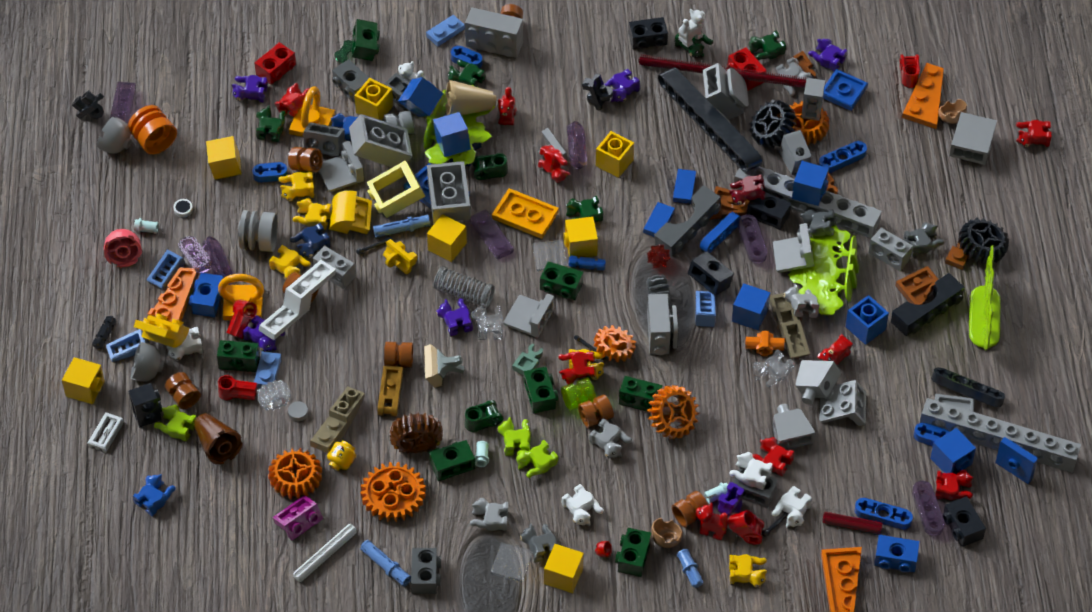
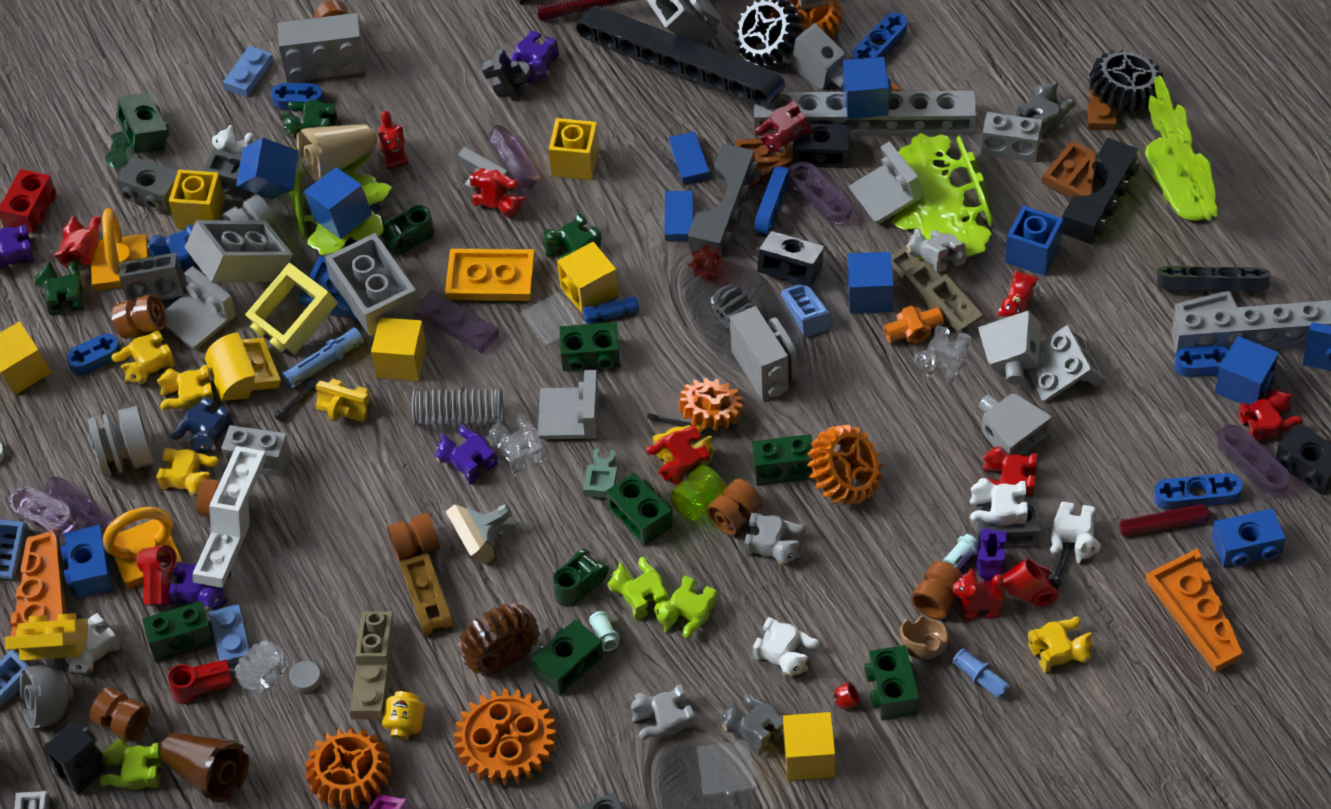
camera: 20 degrees left, 0 degrees up
(819, 222) = (902, 134): dark grey animal -> none

